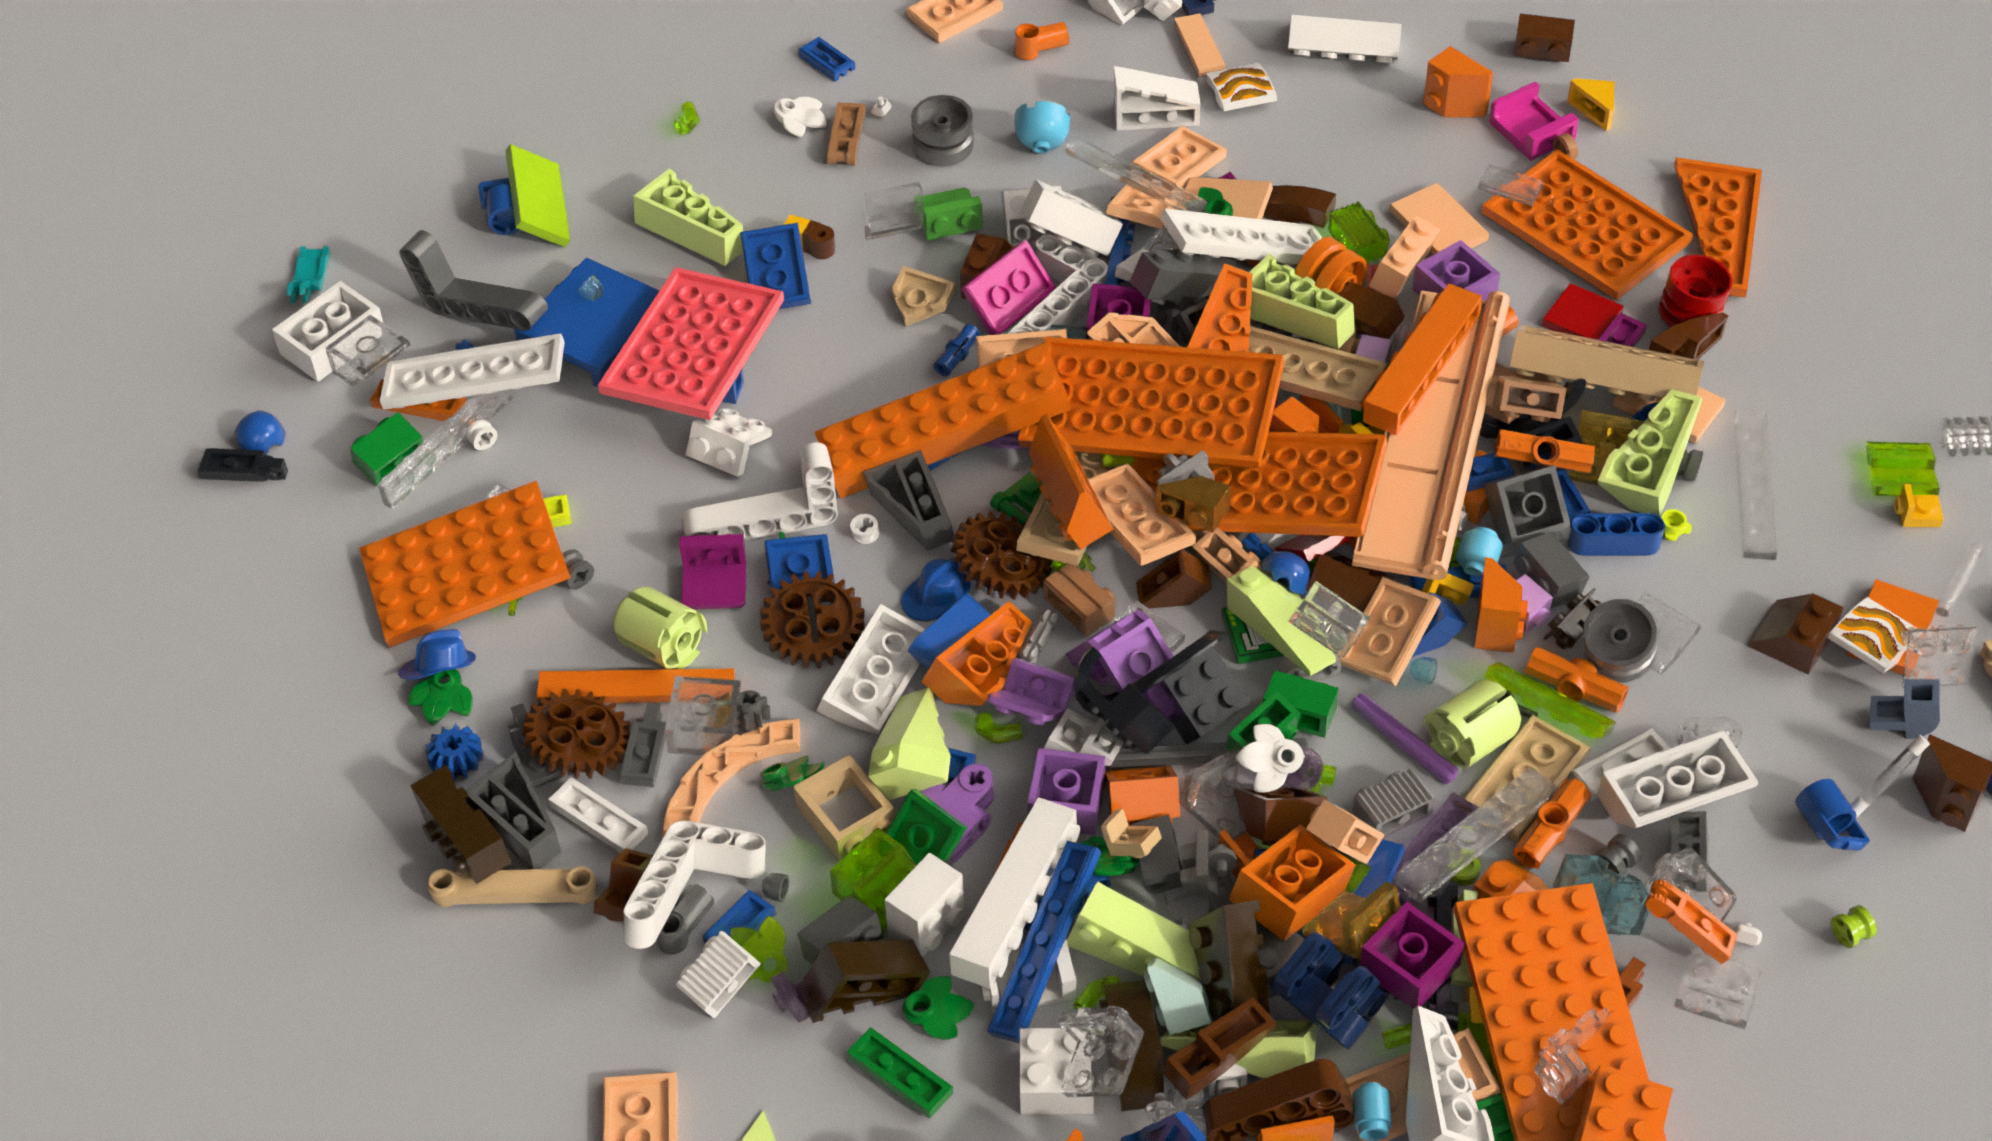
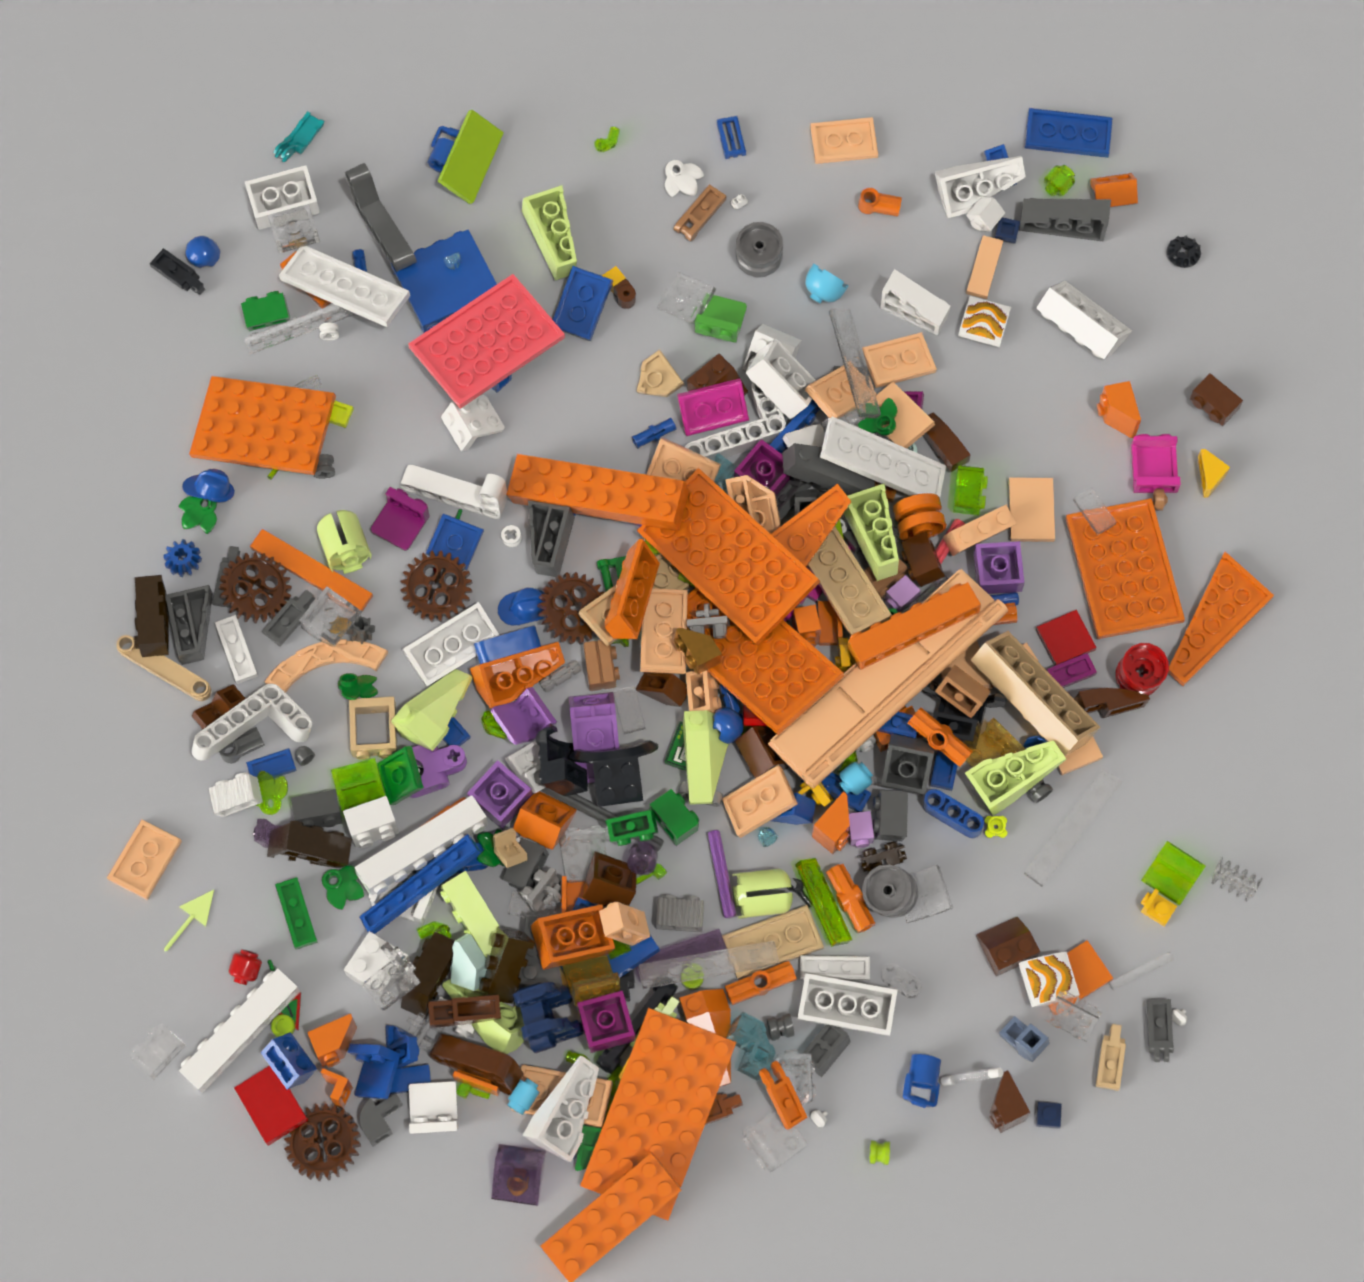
camera: 30 degrees right, 20 degrees up
(1266, 758) = (616, 847): white plate -> none
(1329, 619) = (722, 776): clear brick -> none
(1560, 1066) = (626, 1146): clear bracket -> none

